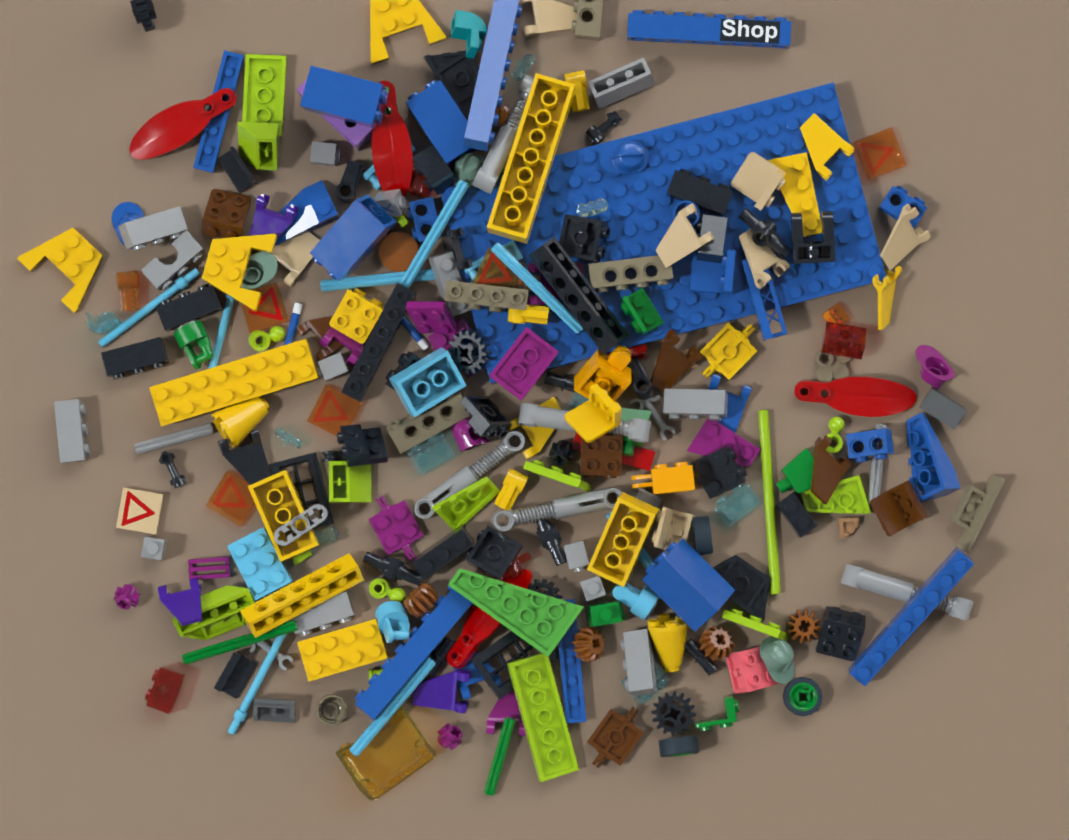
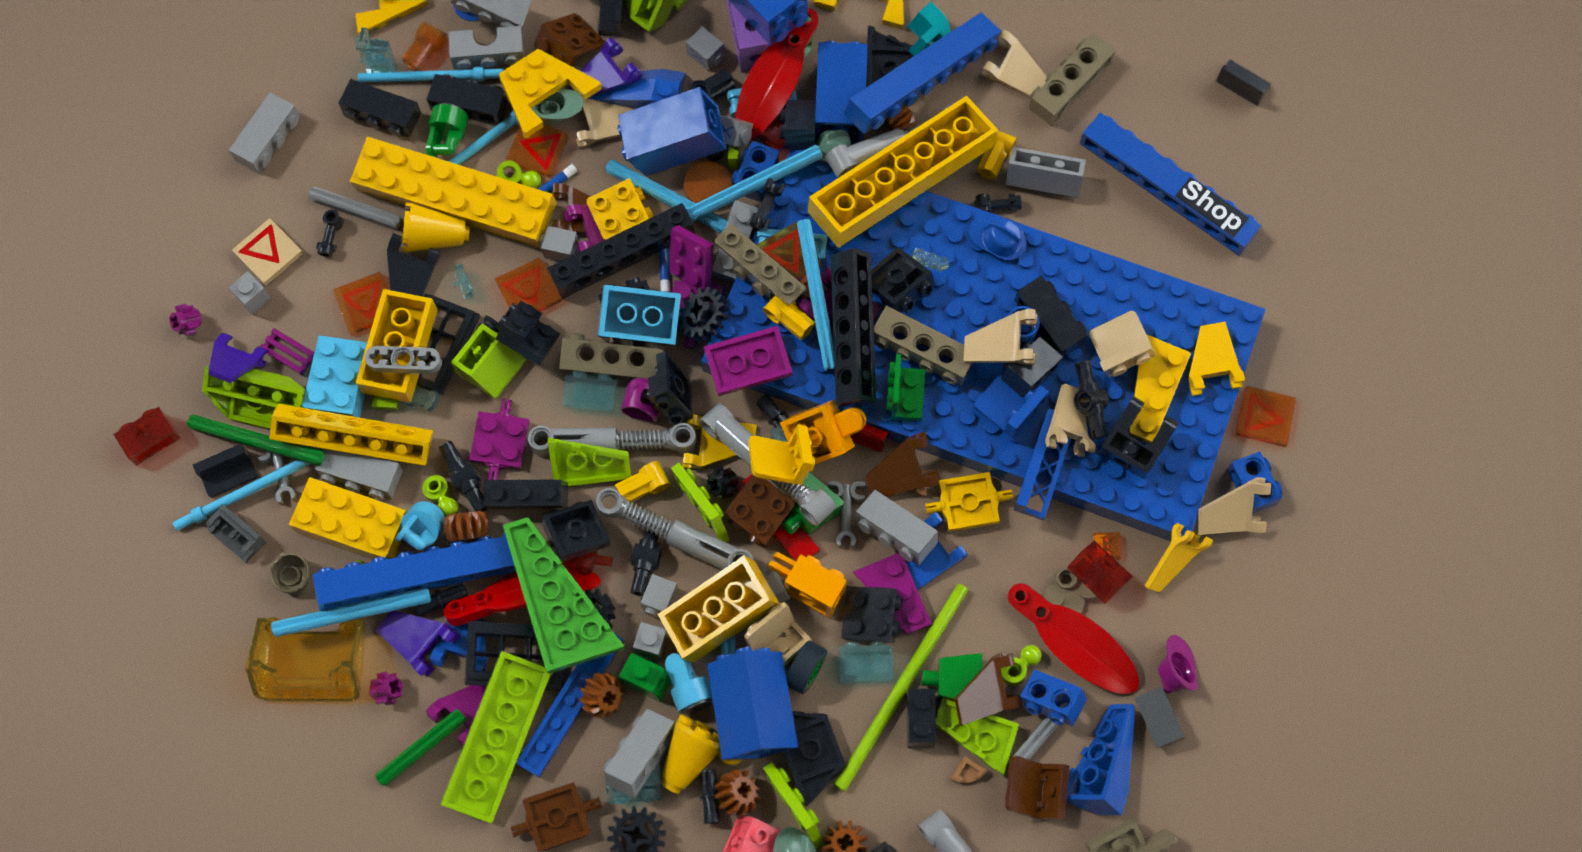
camera: 30 degrees right, 15 degrees down
(523, 67) = (946, 101): clear light blue piece -> none
(640, 378) = (855, 463): black piece -> none

